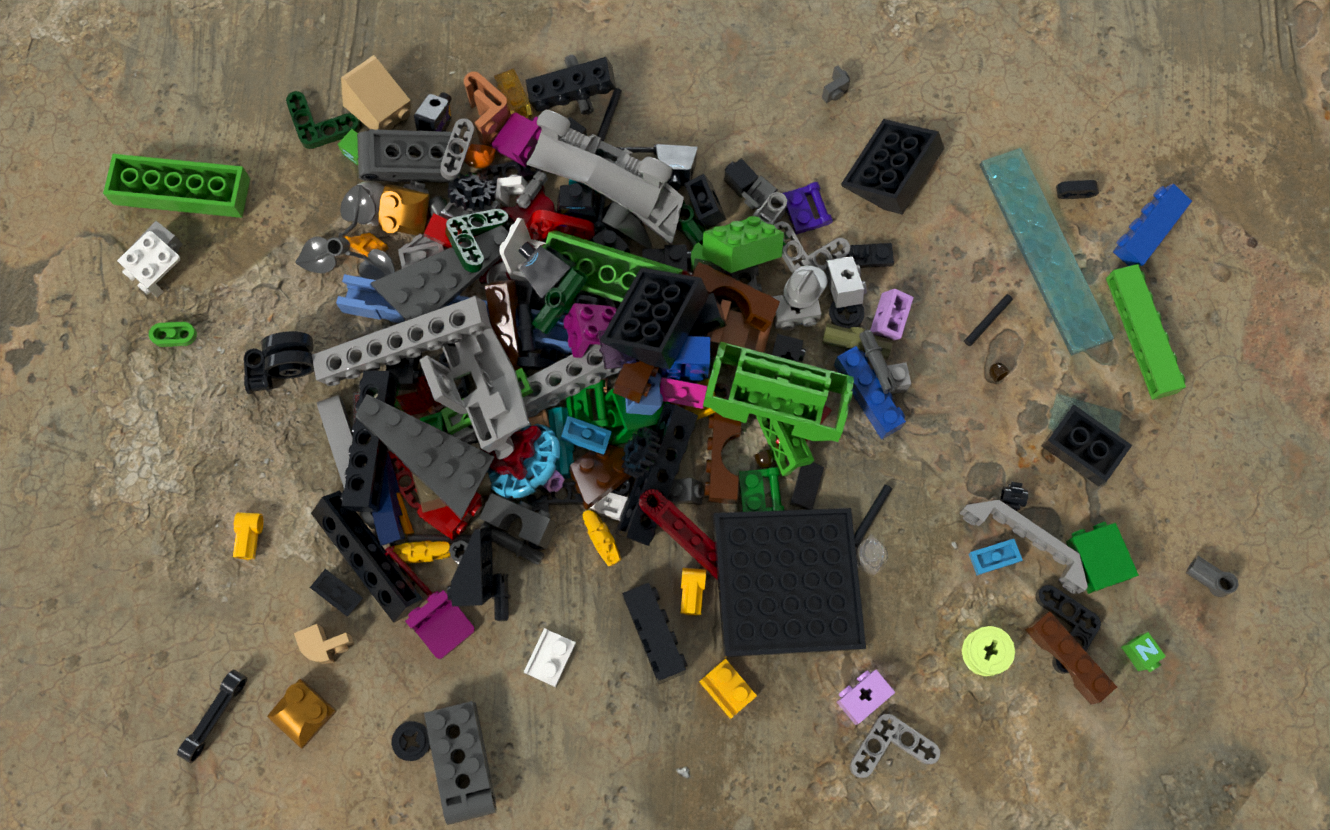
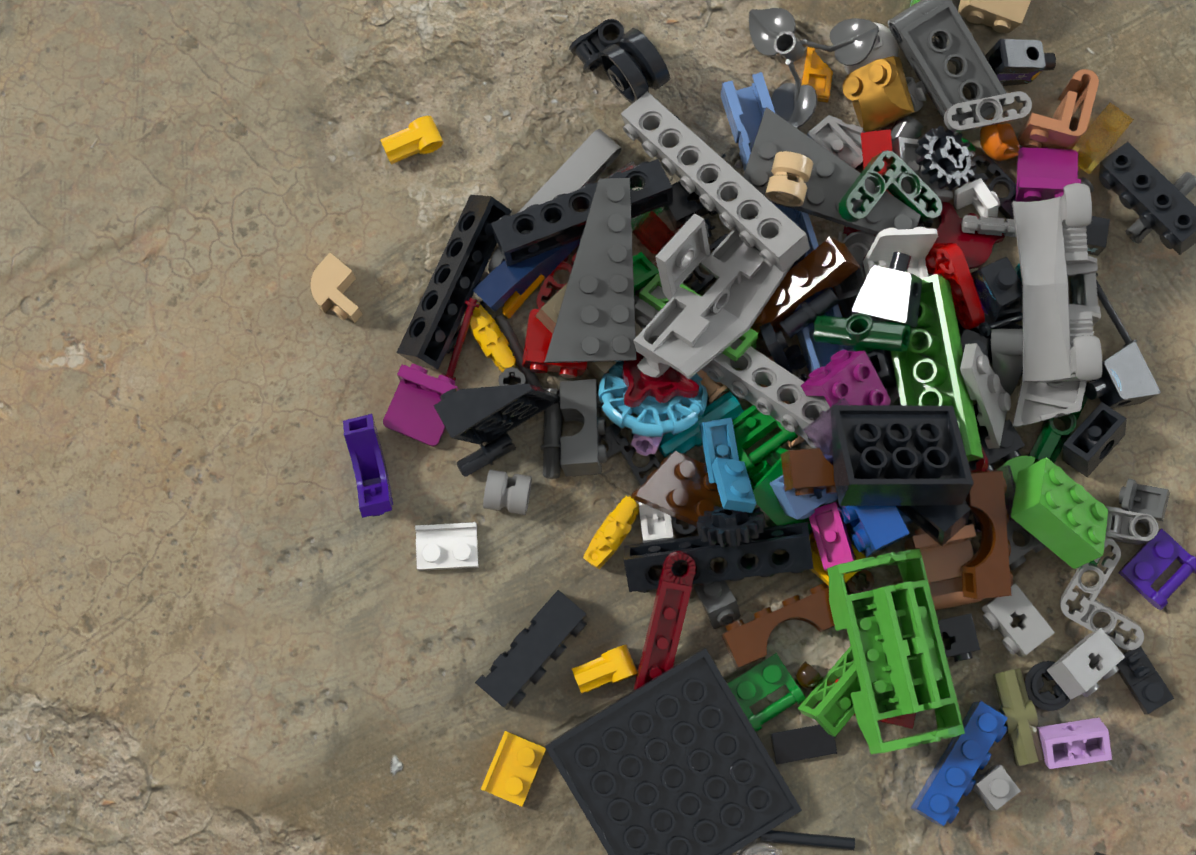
camera: 65 degrees right, 5 degrees up
(195, 743) = (165, 217): black piece -> none
(301, 713) = (252, 309): pearl gold slope -> none
(336, 592) = (397, 272): black plate -> none
(400, 743) = (272, 432): black gear -> none
(429, 290) = (789, 179): none -> tan wheel
(463, 683) = (368, 466): none -> dark purple arch
(479, 796) = (239, 527): dark grey hinge -> none
(535, 594) = (507, 492): none -> light grey wheel
(609, 113) = (1141, 265): black bar -> none
(615, 436) = (733, 485): none -> dark azure plate
(639, 245) = (987, 390): none -> light grey wing
(739, 176) = (1153, 465): black brick -> none
(805, 286) = (1051, 617): light grey piece -> none
(877, 360) = (1001, 754): dark grey axle -> none

